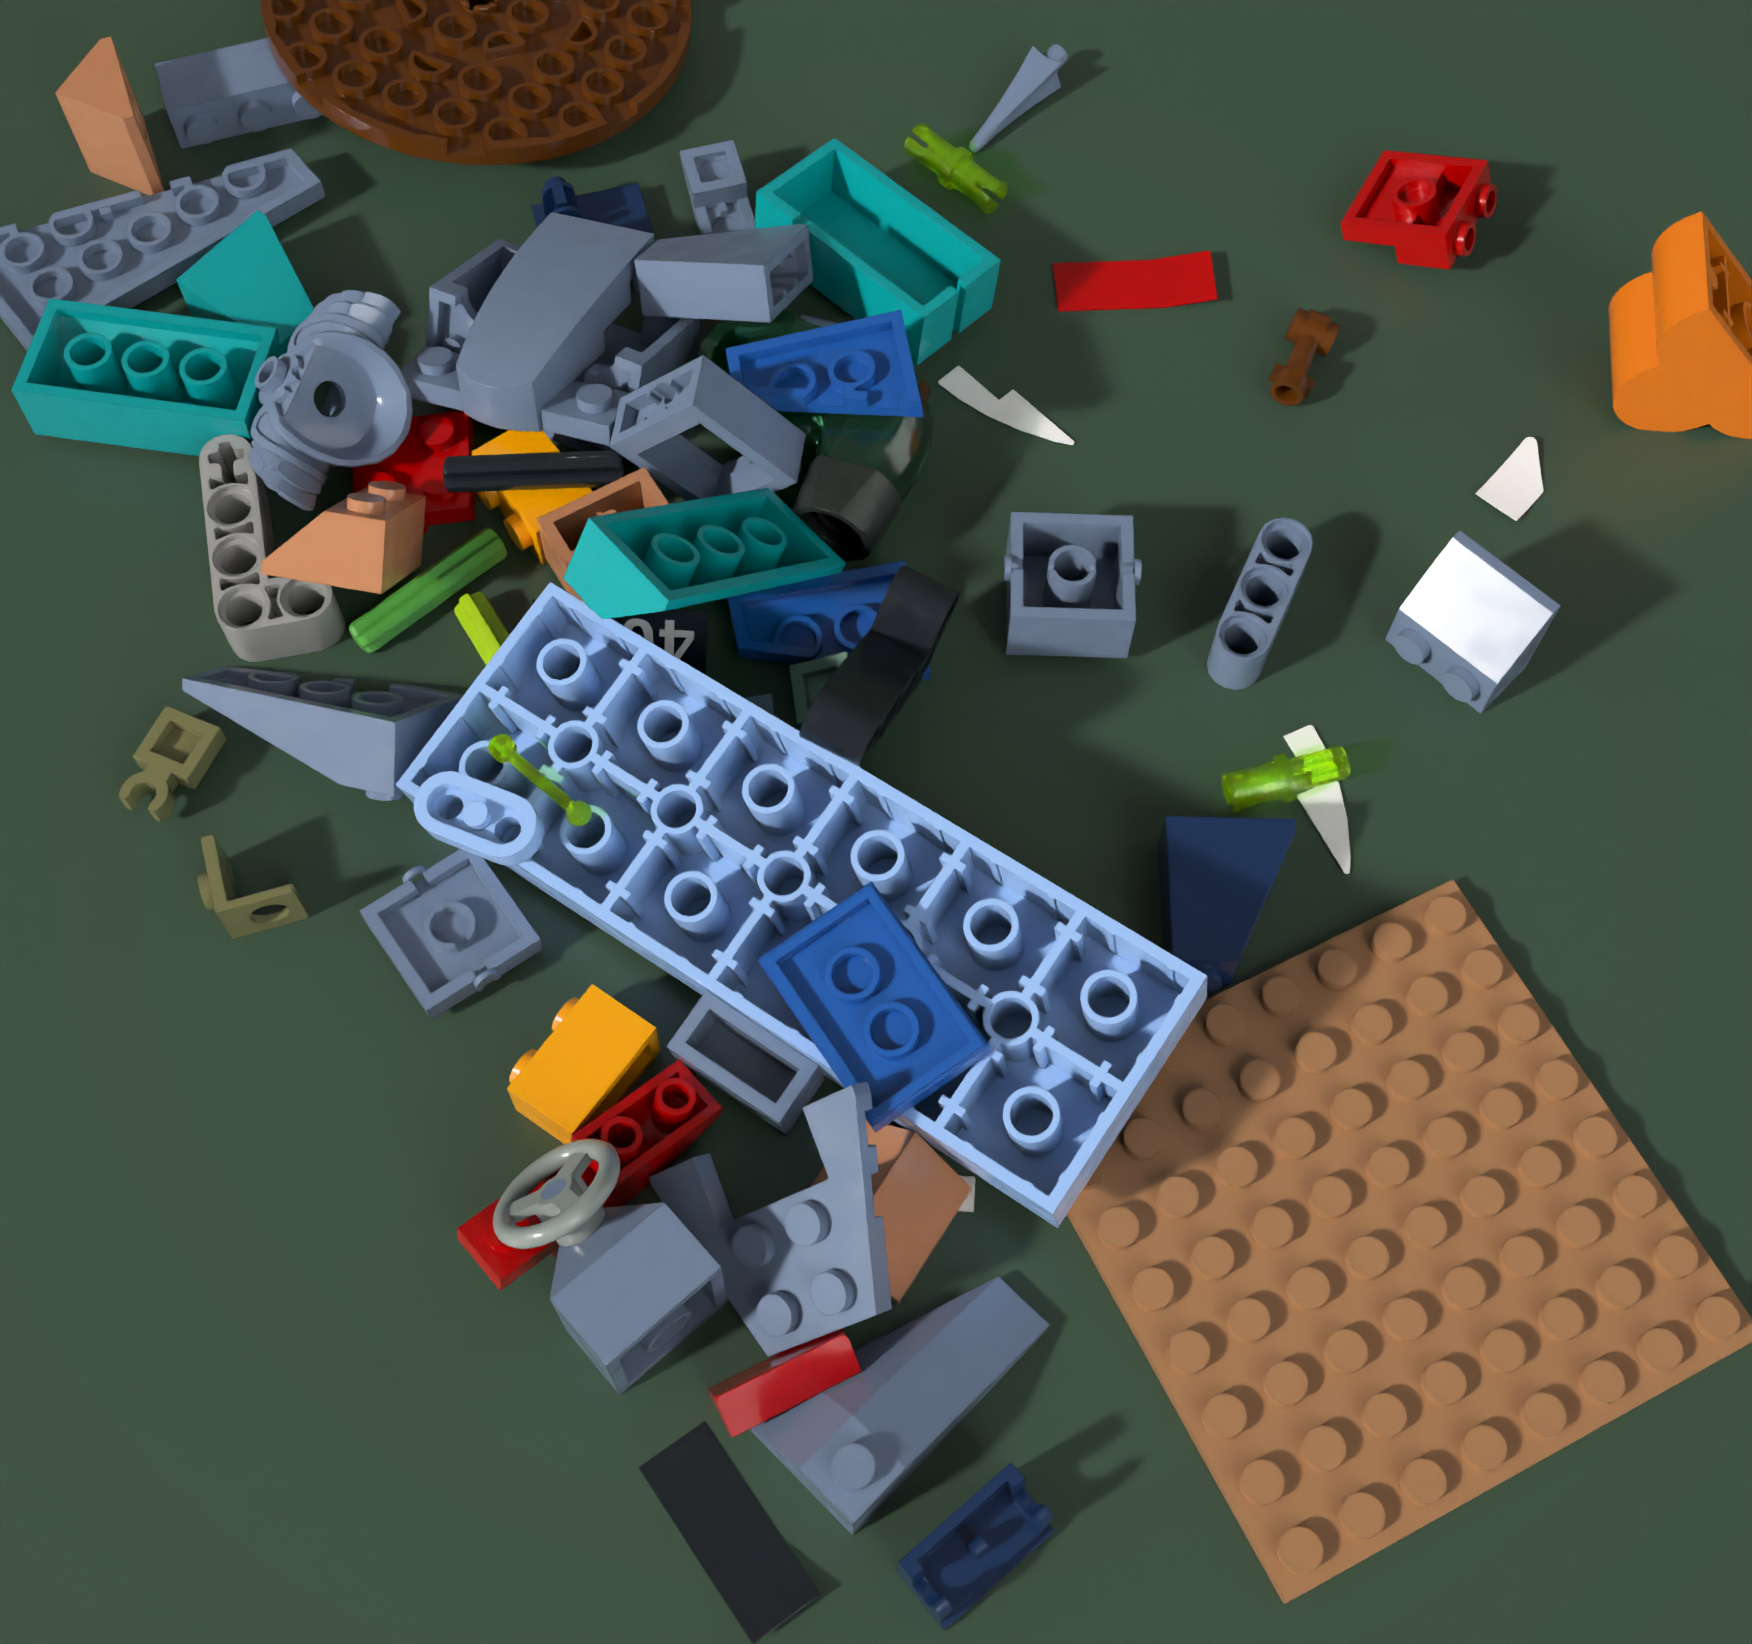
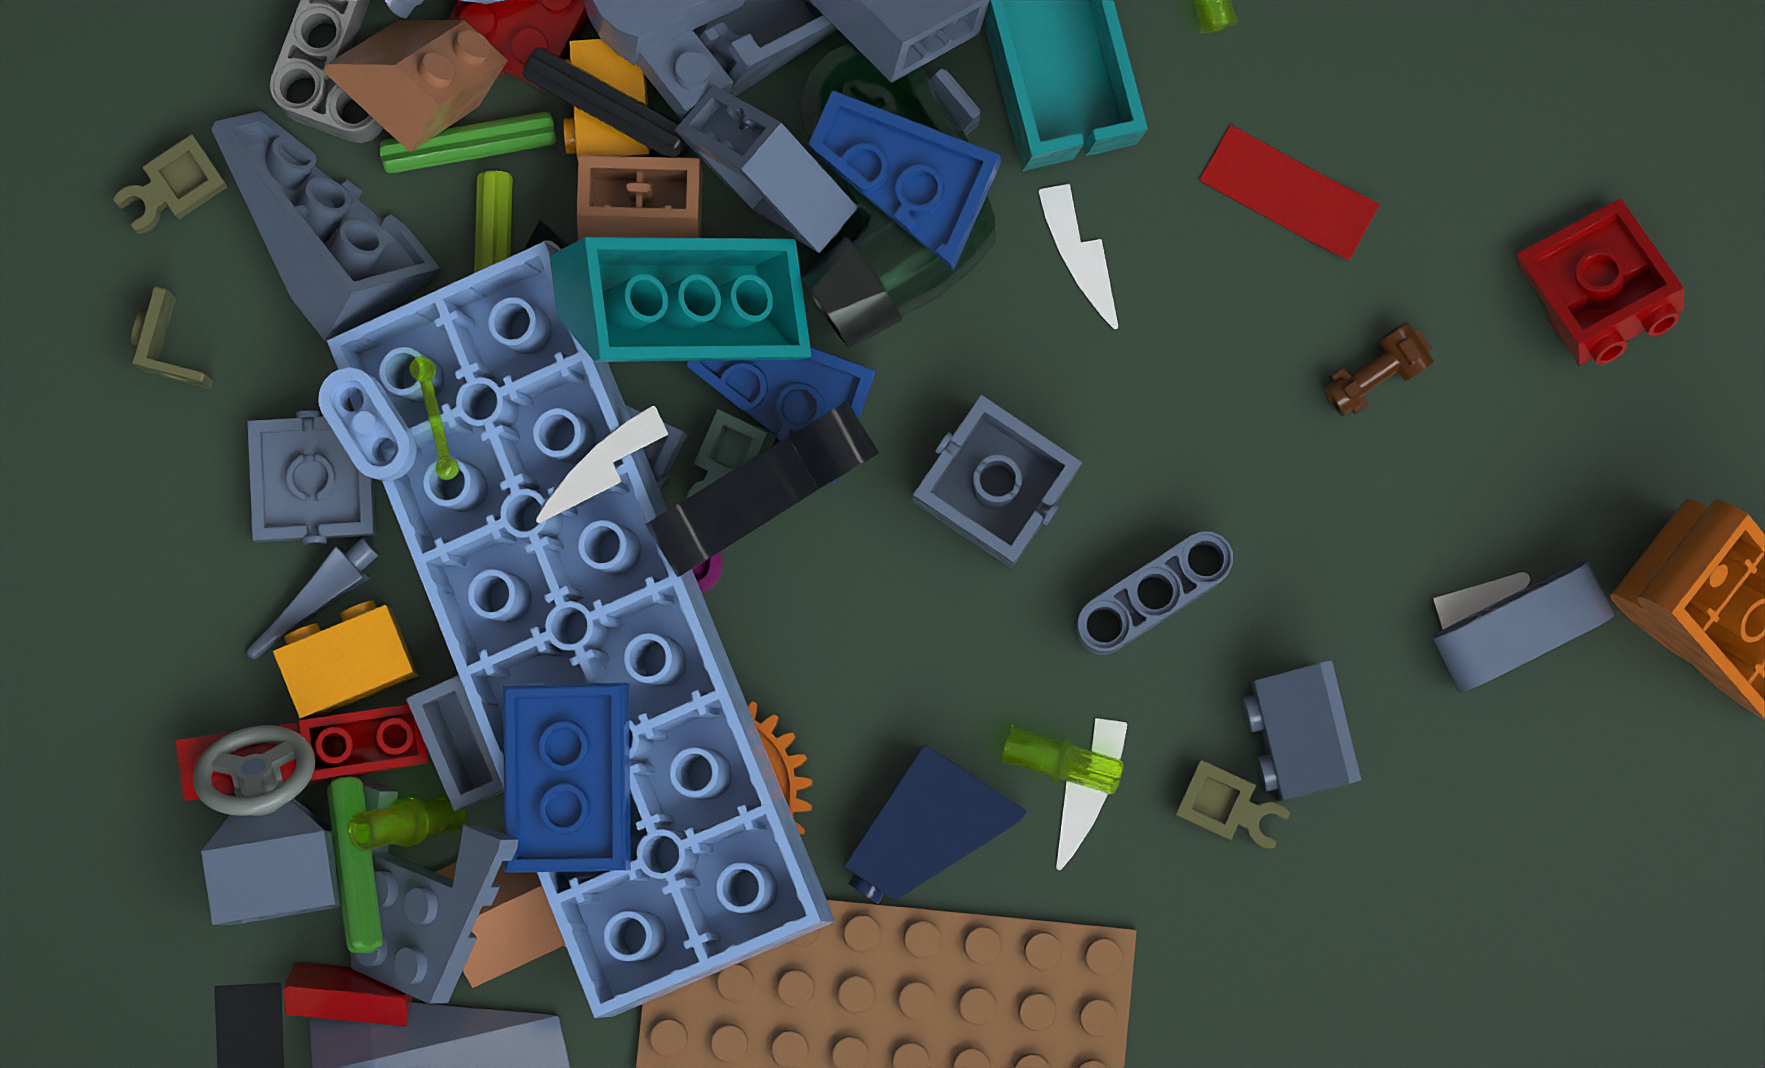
camera: 35 degrees right, 20 degrees up
(526, 1008) = (335, 577): none -> sand blue piece
(721, 728) = (596, 470): none -> white sticker
(737, 1169) = (405, 823): none -> clear neon green pin
(739, 1260) = (354, 869): none -> bright green axle
(1444, 734) = (1221, 803): none -> olive plate
(1565, 464) = (1523, 626): none -> sand blue beam

